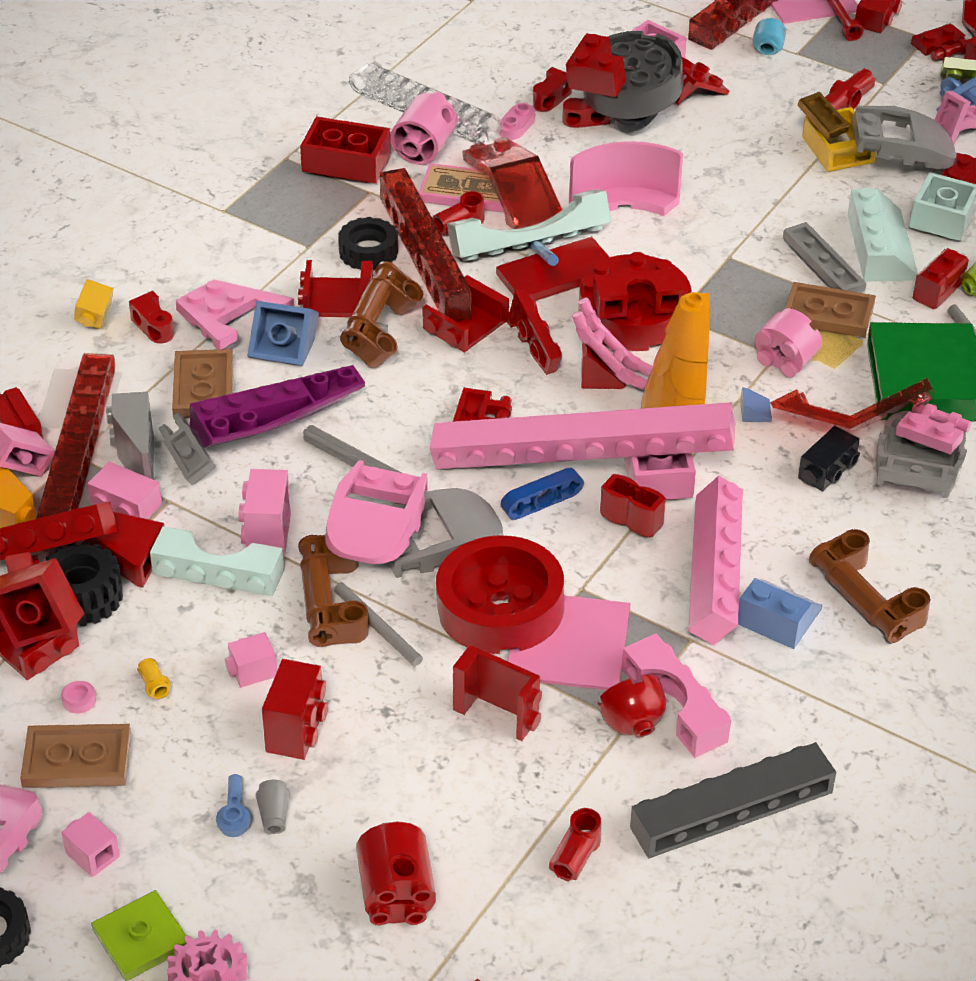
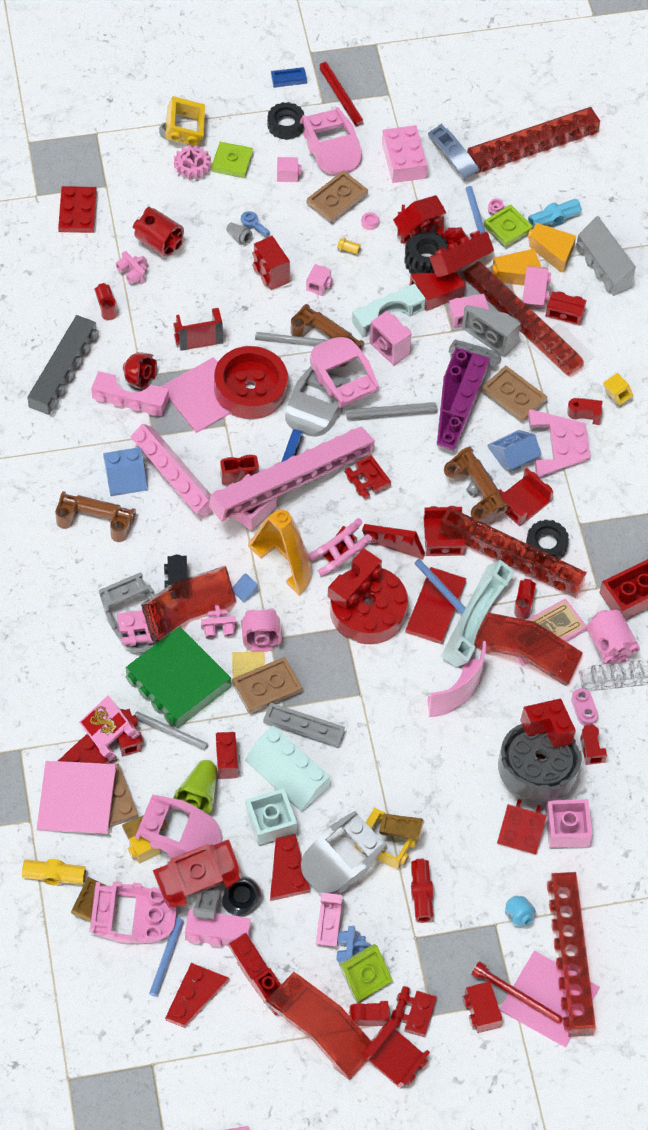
camera: 135 degrees right, 15 degrees up
(487, 879) = (135, 266): none -> bright pink hips
(825, 389) = (210, 623): none -> bright pink hips

